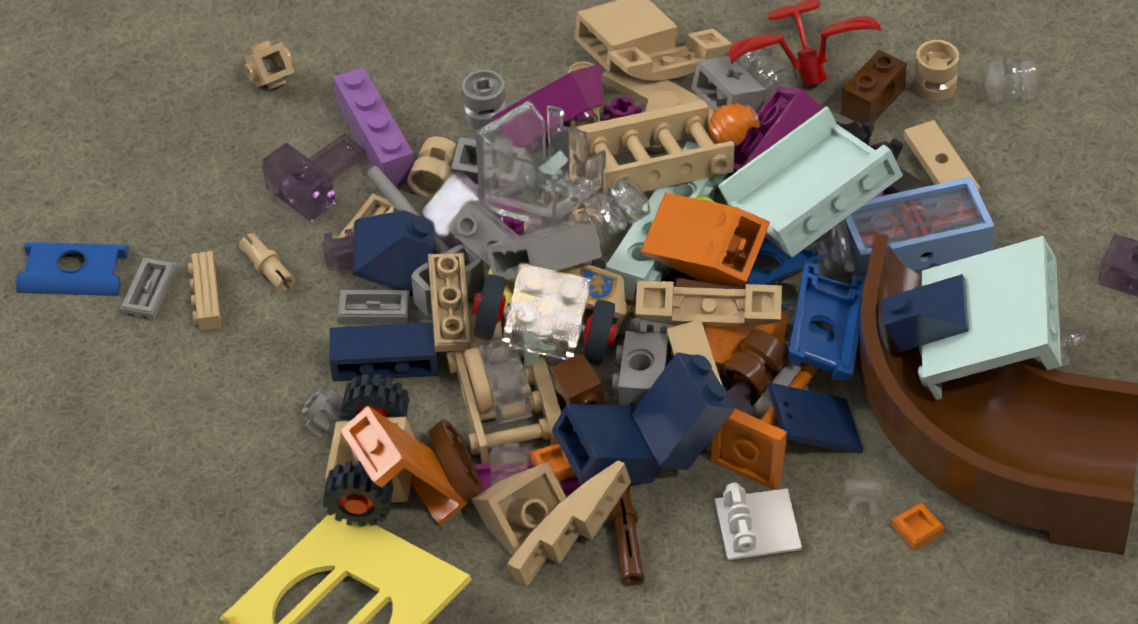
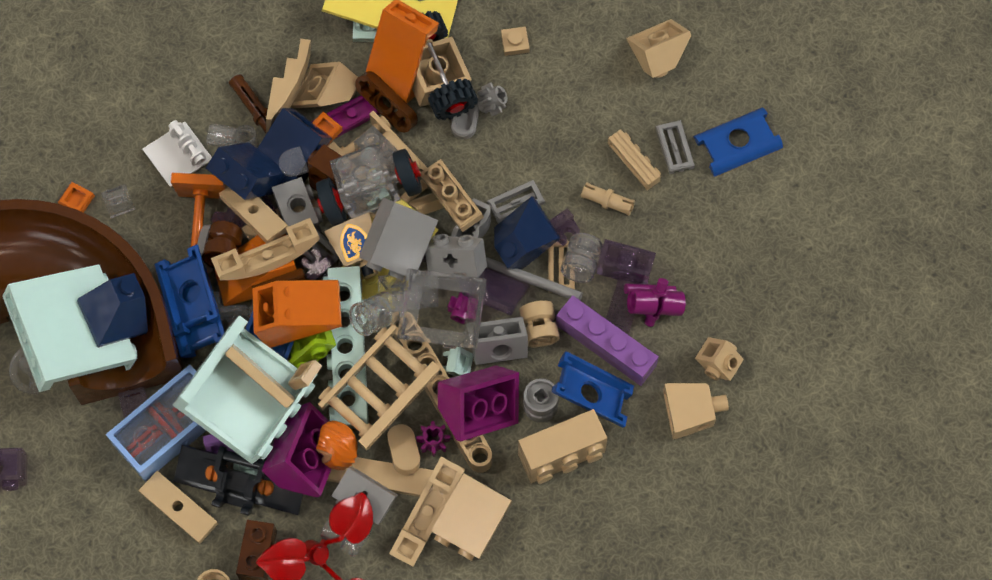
camera: 150 degrees right, 20 degrees up
(76, 390) = (660, 47): none -> tan slope
(245, 479) = (515, 41): none -> tan plate
(297, 132) = (654, 300): none -> magenta pin
(331, 42) = (691, 407): none -> tan torso
(340, 202) = (581, 258): none -> clear wheel
(383, 350) = (486, 161): dark blue brick -> none
(422, 66) = (610, 388): none -> blue piece
(491, 41) = (562, 447): none -> tan brick
(508, 461) = (348, 108): clear tile -> none
(619, 403) = (293, 162): none -> clear tile
(677, 502) = (223, 135): none -> clear piece
(732, 185) = (304, 374): none -> tan tile
(783, 177) = (260, 376): none -> tan tile
(815, 418) = (170, 232): dark blue container -> none

